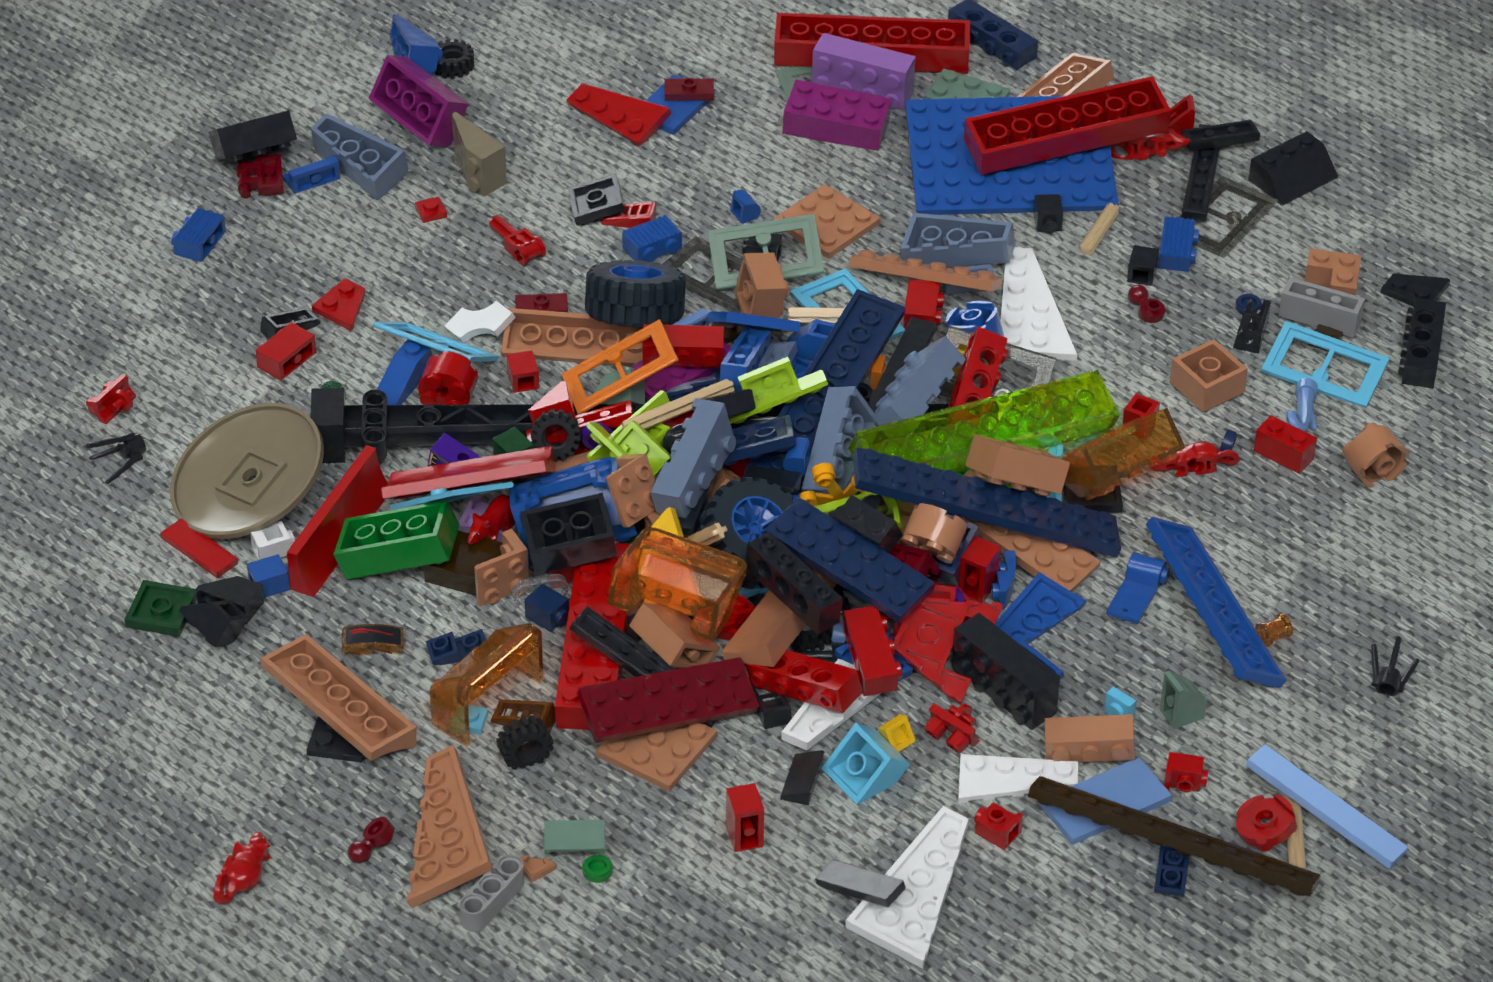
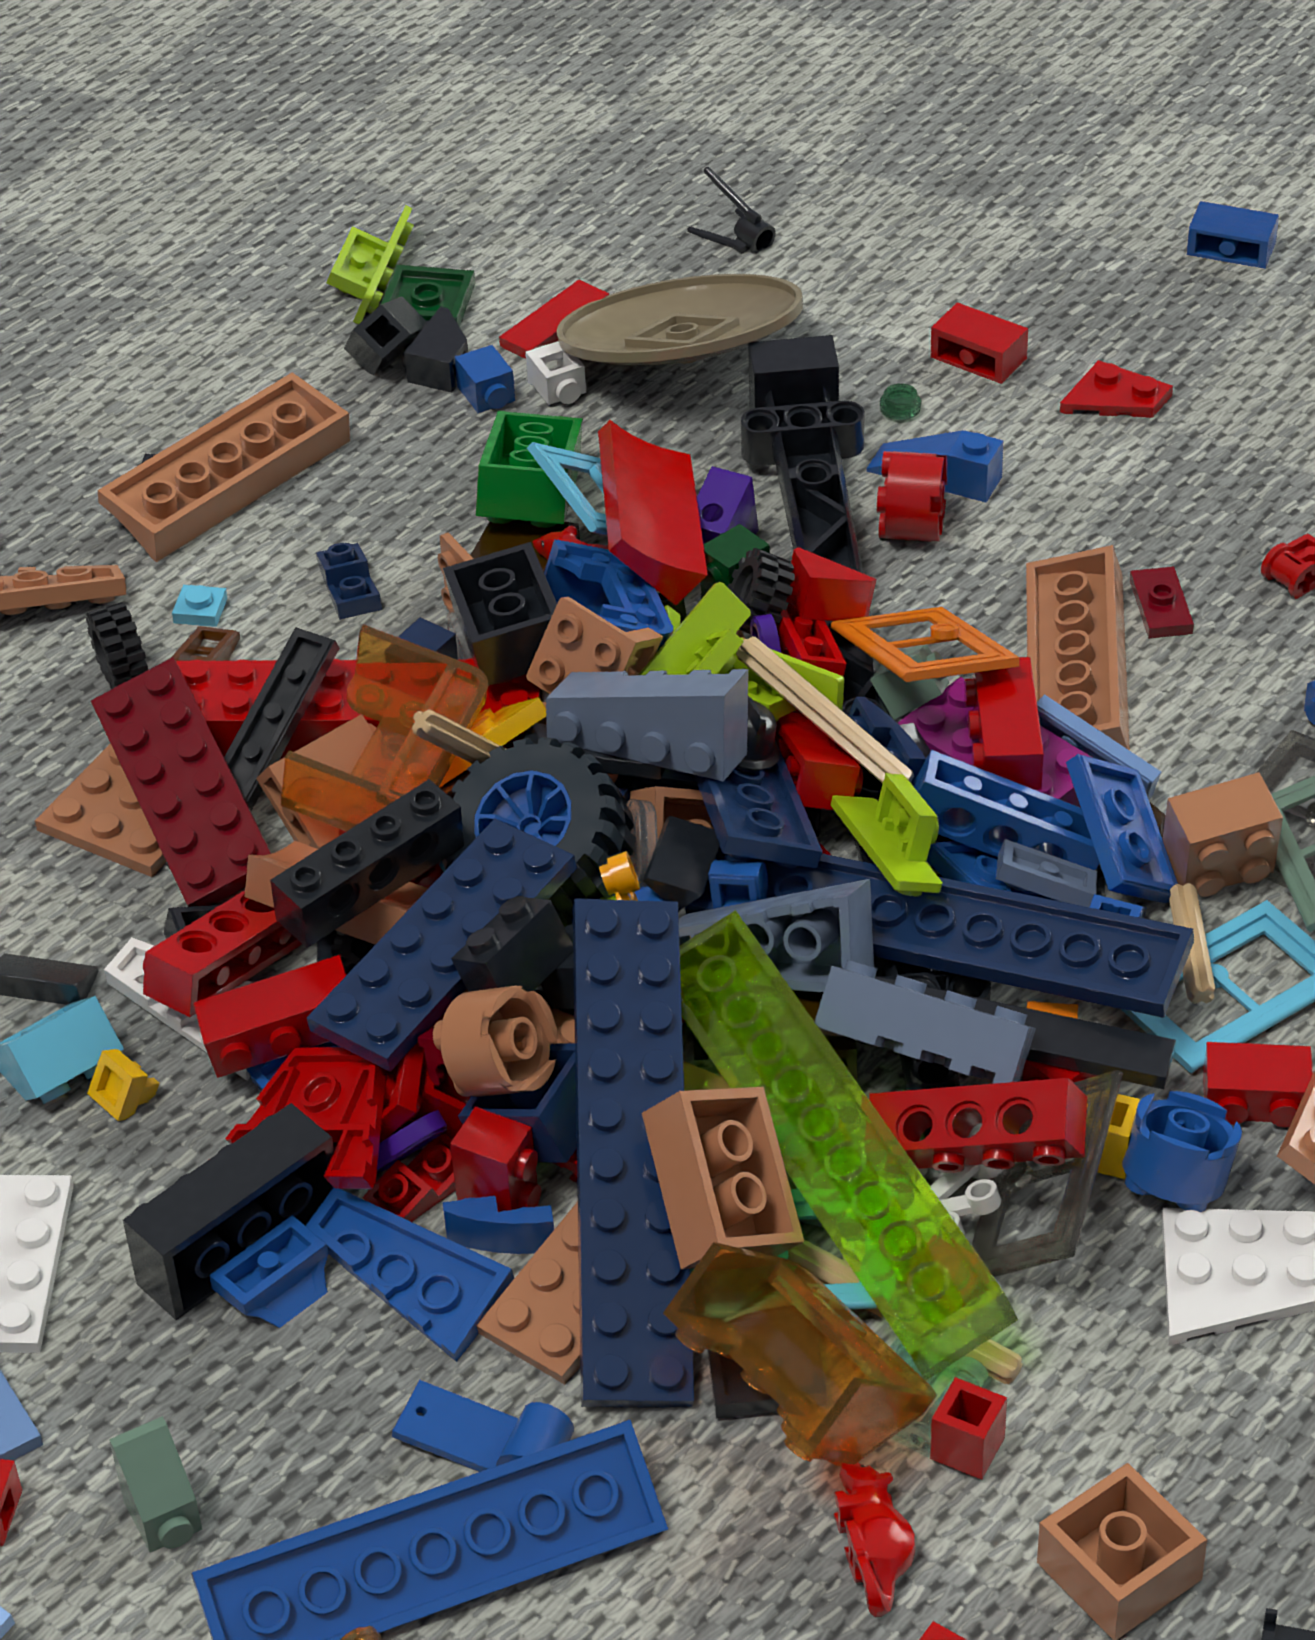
camera: 90 degrees right, 0 degrees up
(114, 398) = (848, 204): red hips -> none
(117, 632) = (364, 263): none -> lime bracket
(274, 322) = (1048, 324): black slope -> none
(356, 494) = (646, 412): red arch -> none
(367, 637) = (364, 494): slope -> none
(441, 342) = (1046, 508): medium azure door -> none
(486, 664) = (192, 548): clear orange windscreen -> none
(490, 320) = (1085, 527): white tile -> none
(522, 371) = (976, 585): red brick -> none
(635, 293) = (1154, 669): black wheel -> none
(736, 401) = (835, 770): black slope -> none
(956, 721) = (132, 1161): red hips -> none
(1090, 738) = (71, 1350): nougat brick -> none
(1119, 703) = (166, 1396): medium azure plate -> none
(1228, 440) = (928, 1595): dark blue tile -> none

